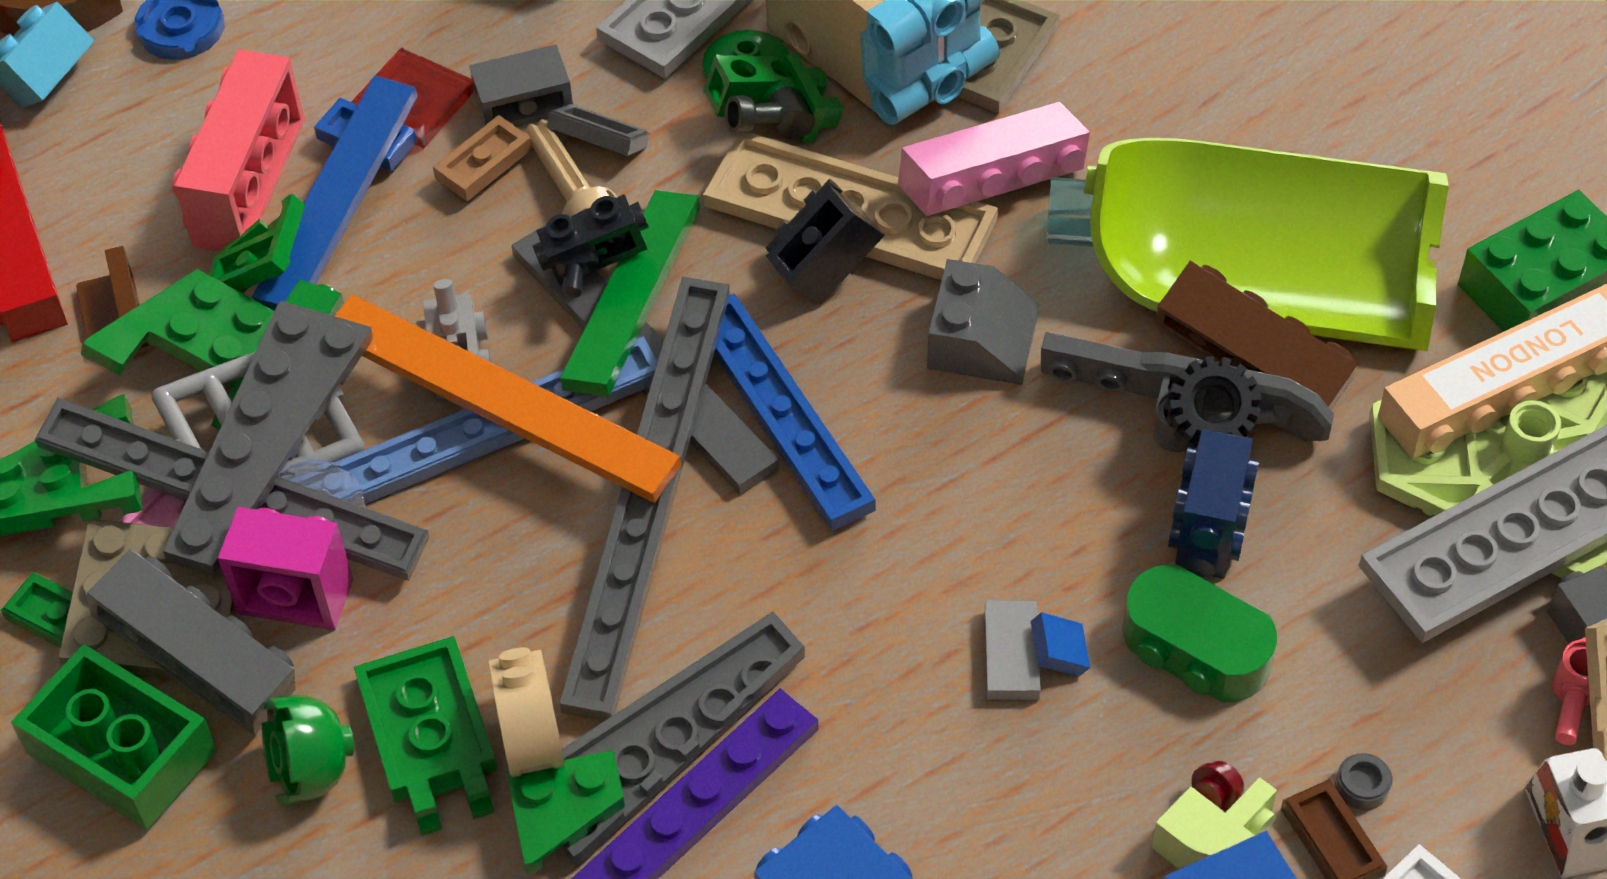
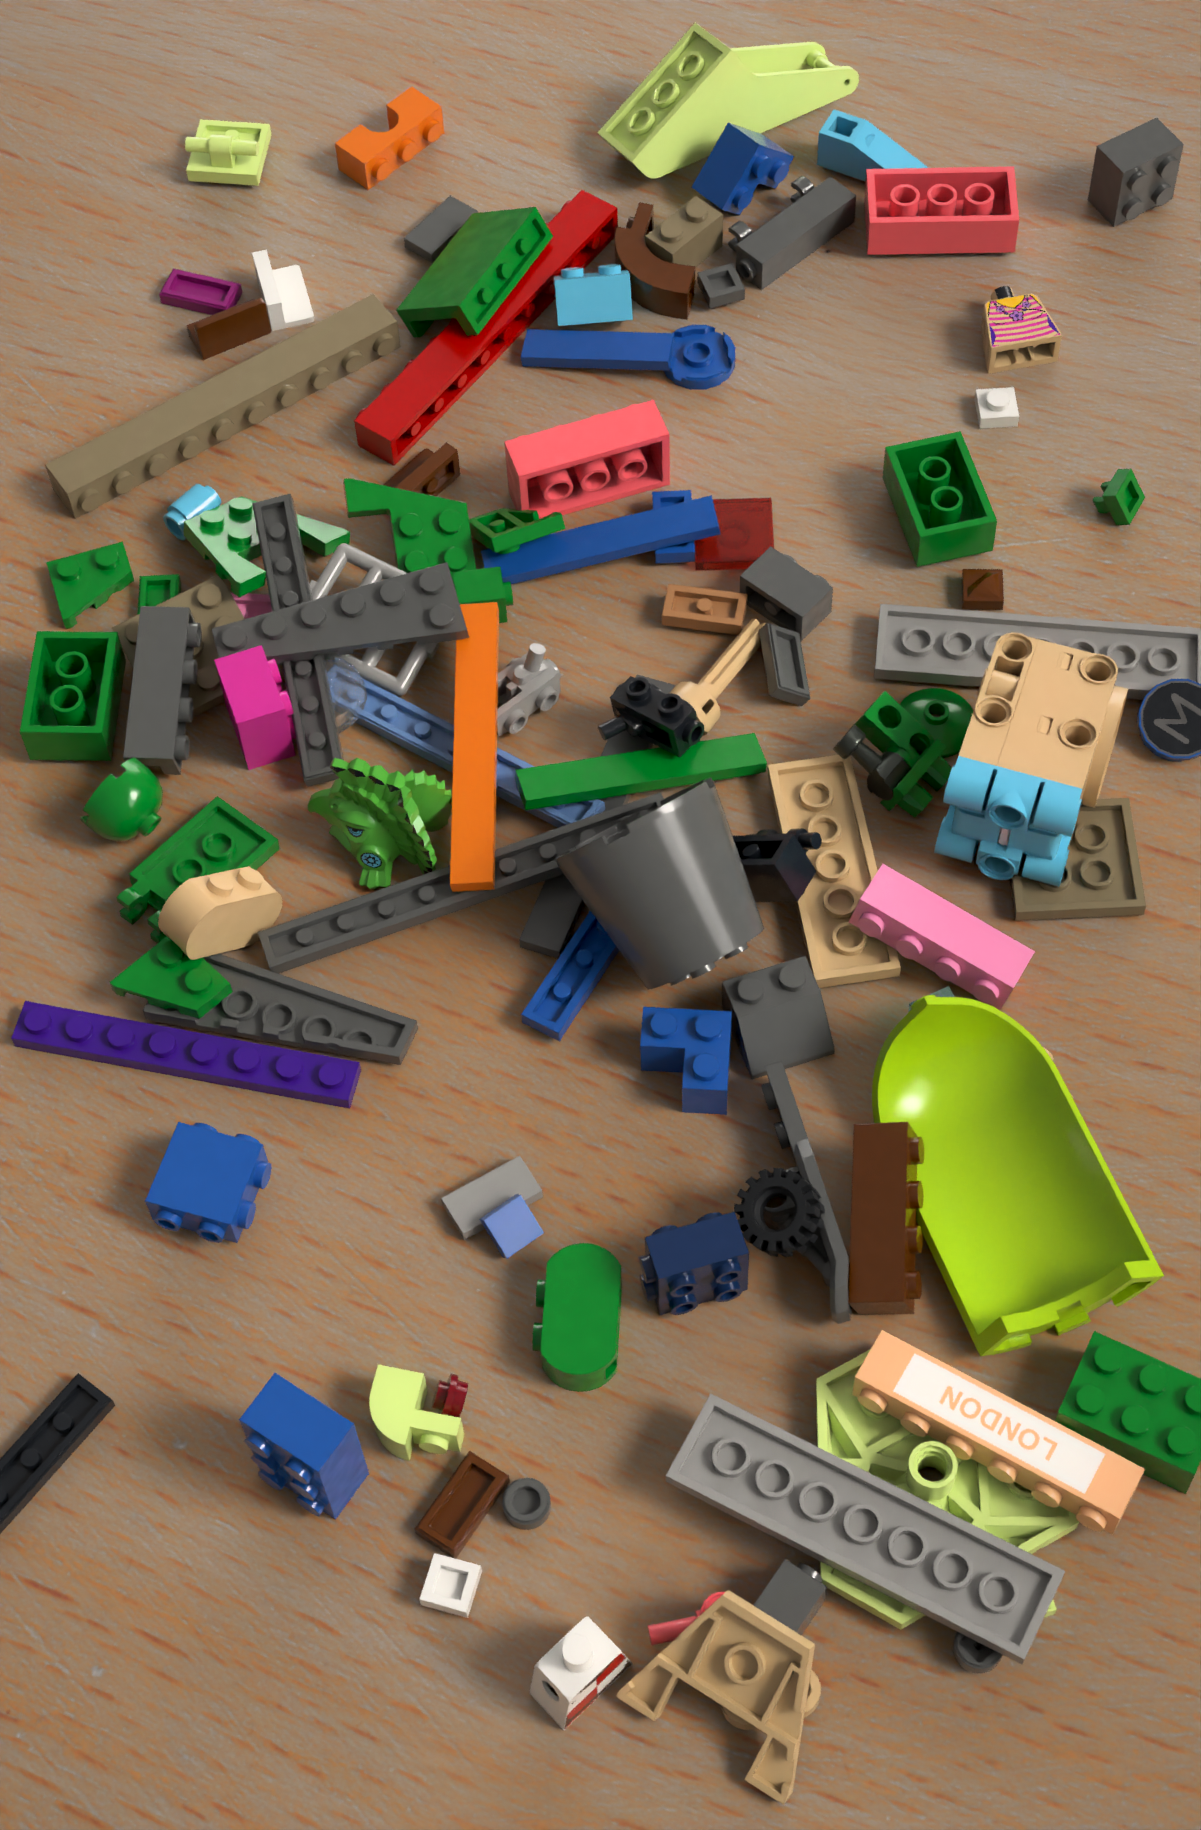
camera: 60 degrees right, 5 degrees up
(98, 88) = (598, 349): none -> blue tile
(523, 513) = (383, 816): none -> bright green piece
(809, 302) = (668, 887): none -> dark grey cone
(976, 397) = (693, 1045): none -> blue brick

